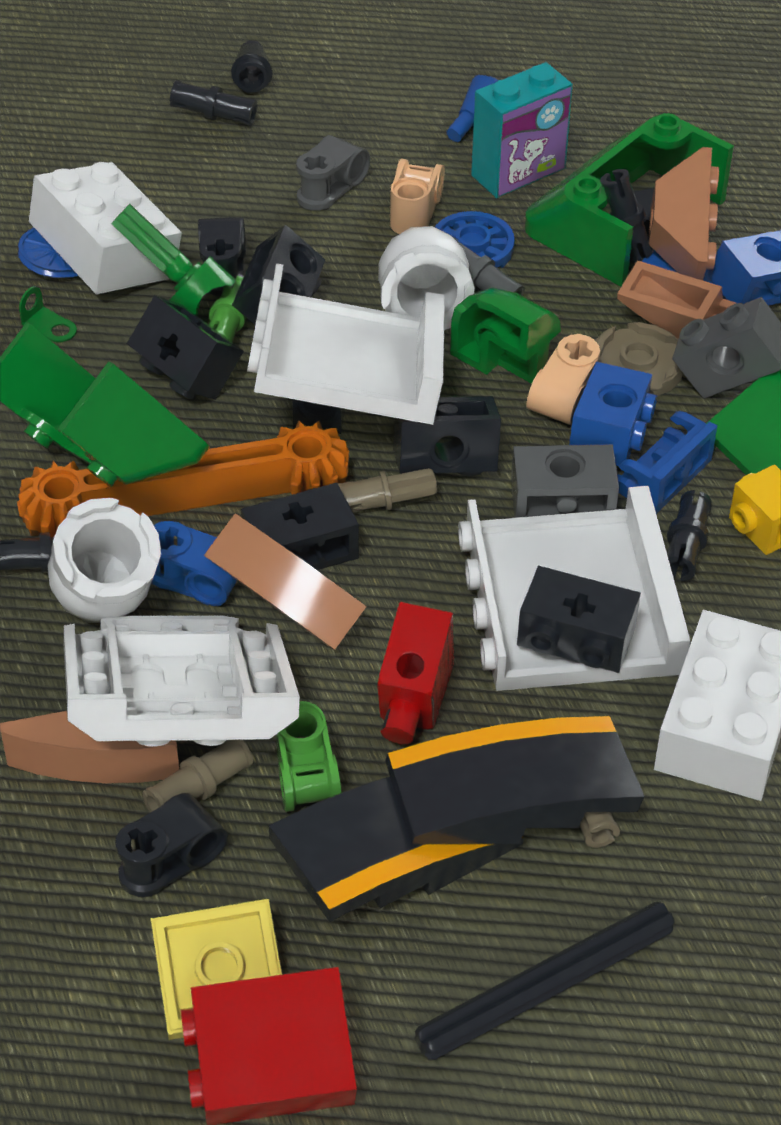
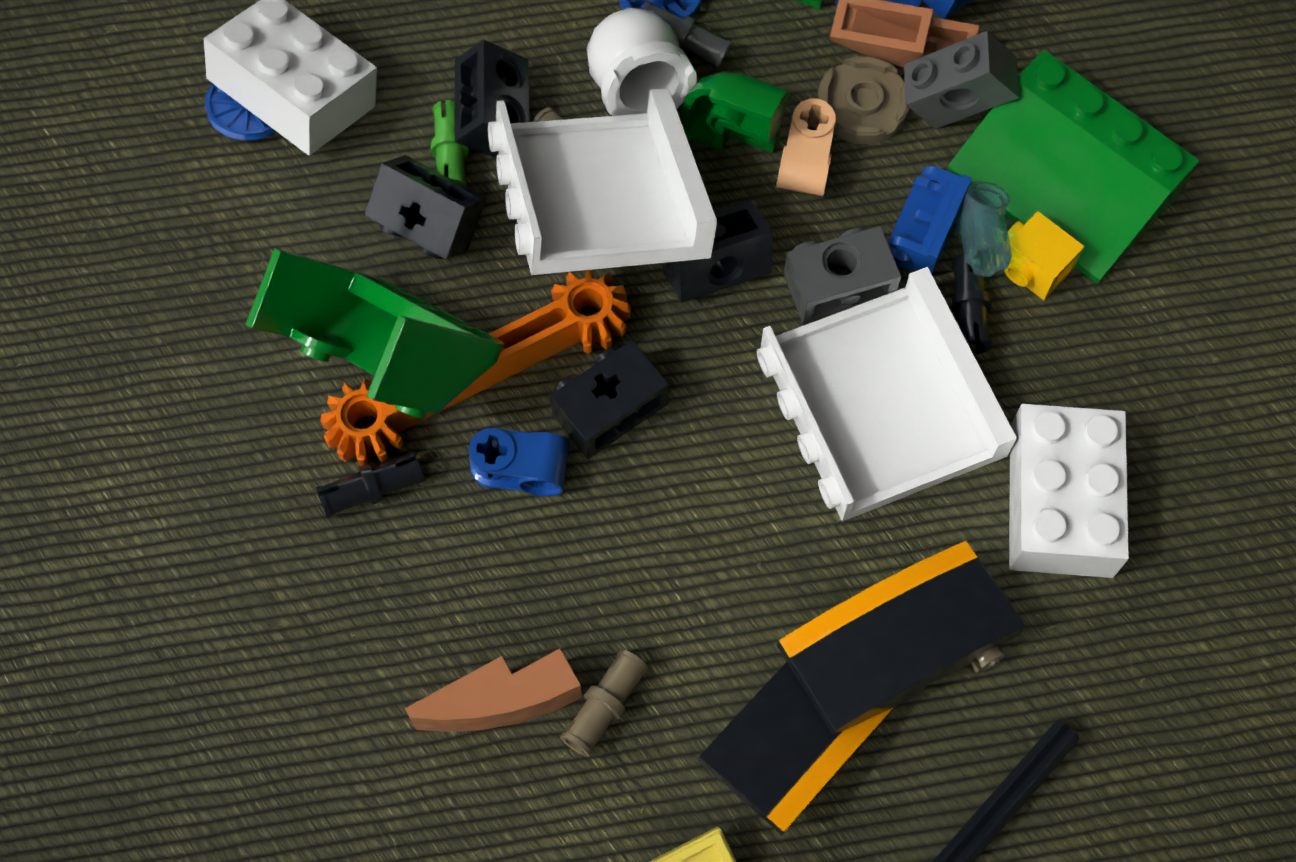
camera: 15 degrees left, 20 degrees up
(43, 318) = (262, 194): green piece -> none
(103, 560) = (444, 502): white tile -> none
(171, 838) = (608, 777): black piece -> none
(178, 680) = (558, 614): white wedge -> none
(192, 281) = (408, 124): green piece -> none
(225, 242) = (418, 70): black piece -> none
(285, 581) = (621, 471): nougat slope -> none
(306, 764) = (702, 668): bright green piece -> none
(384, 490) = (675, 323): dark tan axle -> none
(415, 671) = (774, 521): red torso -> none
(578, 619) = (931, 433): black brick -> none
(614, 410) = (864, 180): blue brick -> none
(717, 468) = (984, 228): none -> clear light blue piece

